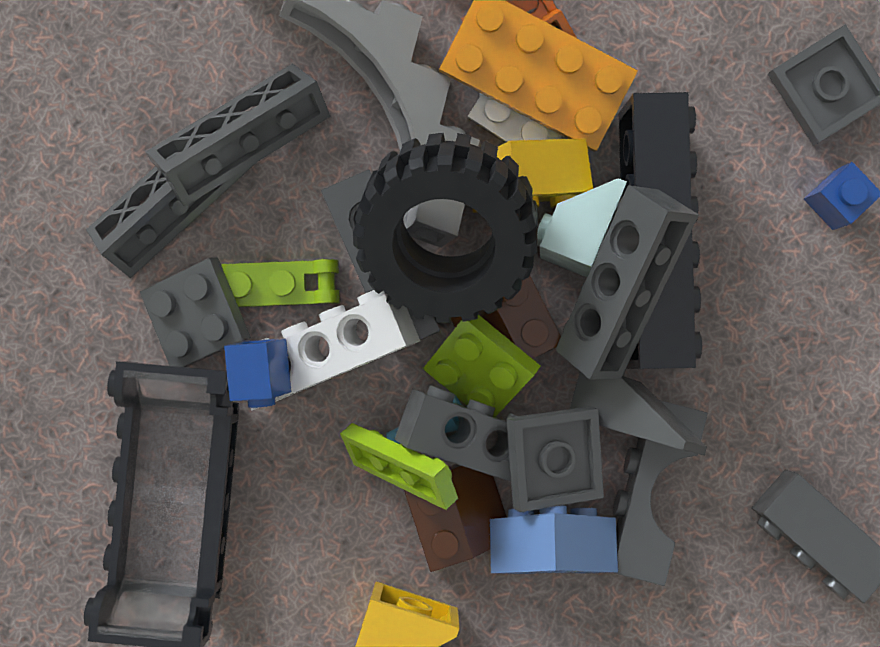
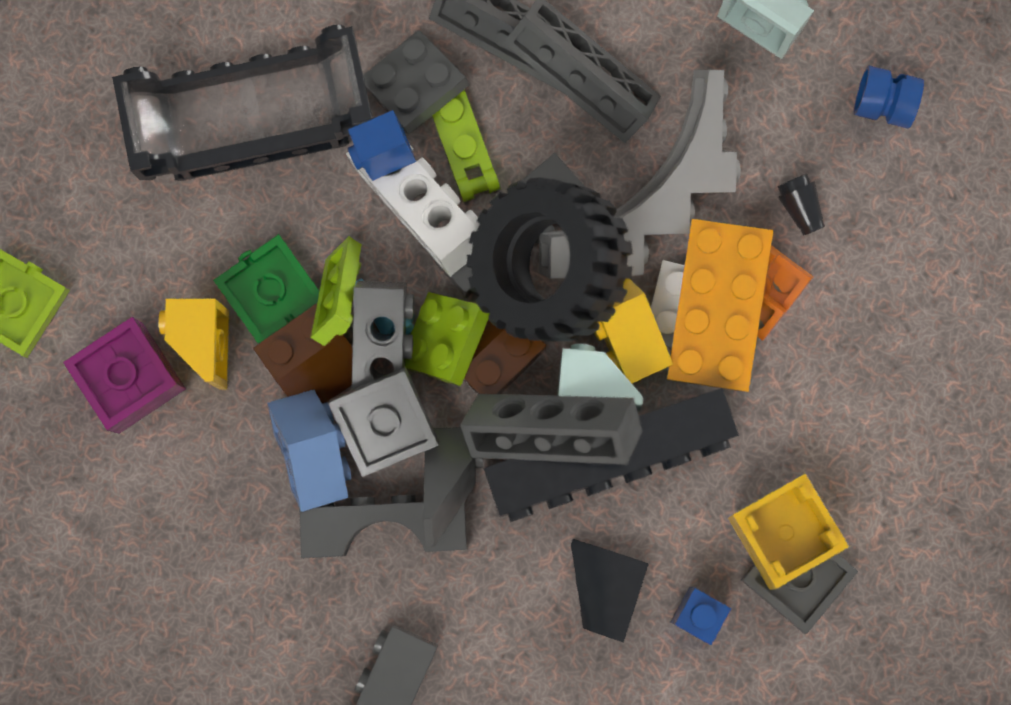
camera: 75 degrees right, 5 degrees down
(368, 534) = (268, 288): none -> green plate
(784, 281) = (606, 588): none -> black slope
(793, 78) = (788, 532): none -> yellow container

